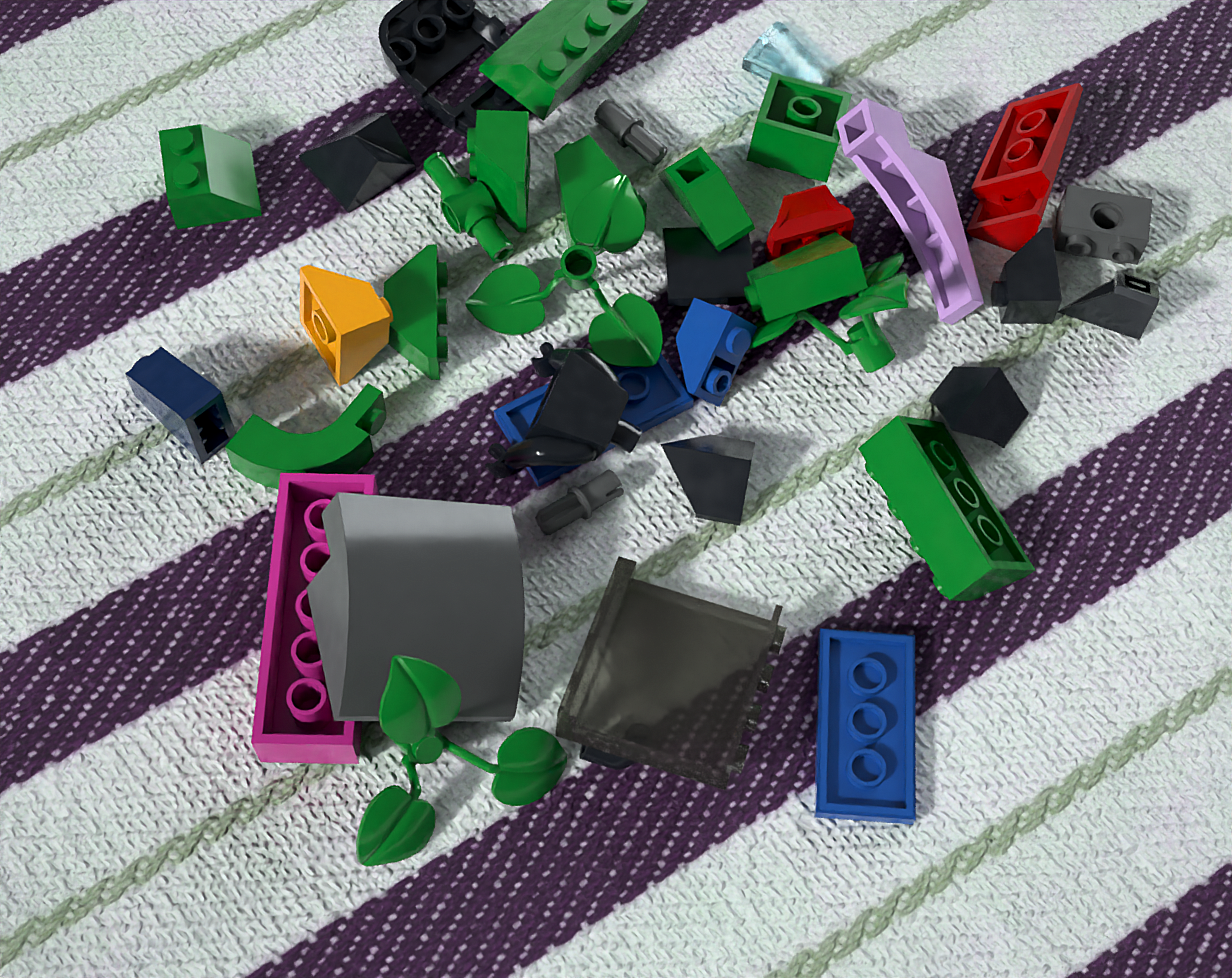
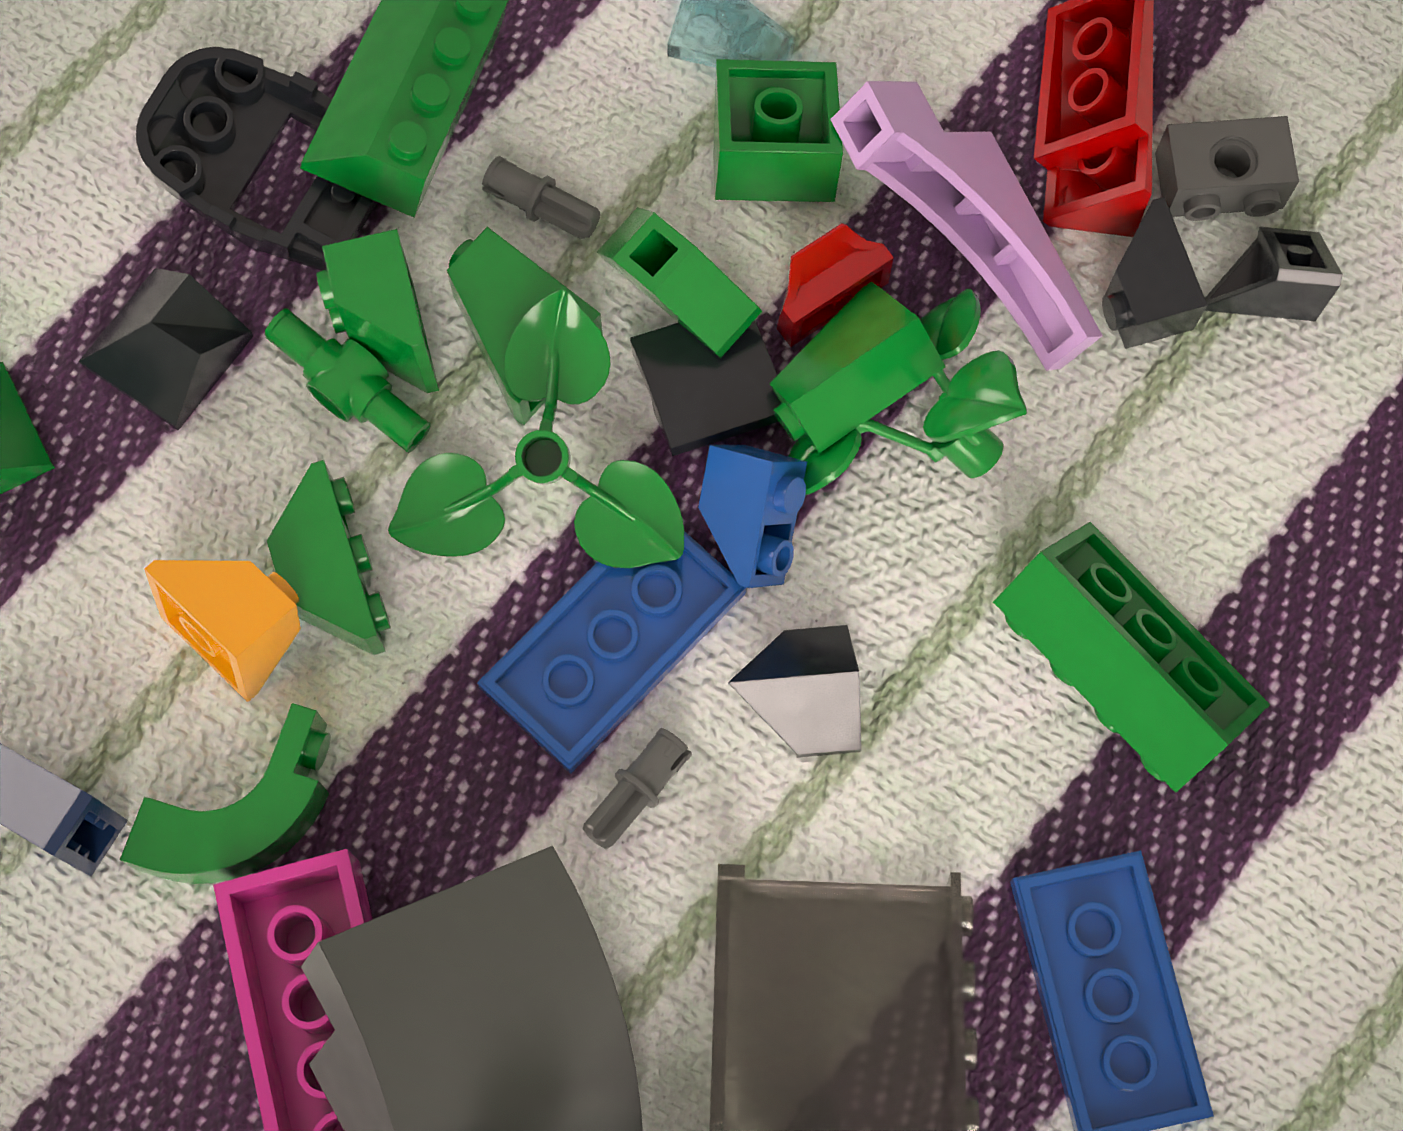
camera: 15 degrees left, 10 degrees up
(574, 417) = (597, 666): black torso -> none
(980, 403) = (1131, 486): black slope -> none

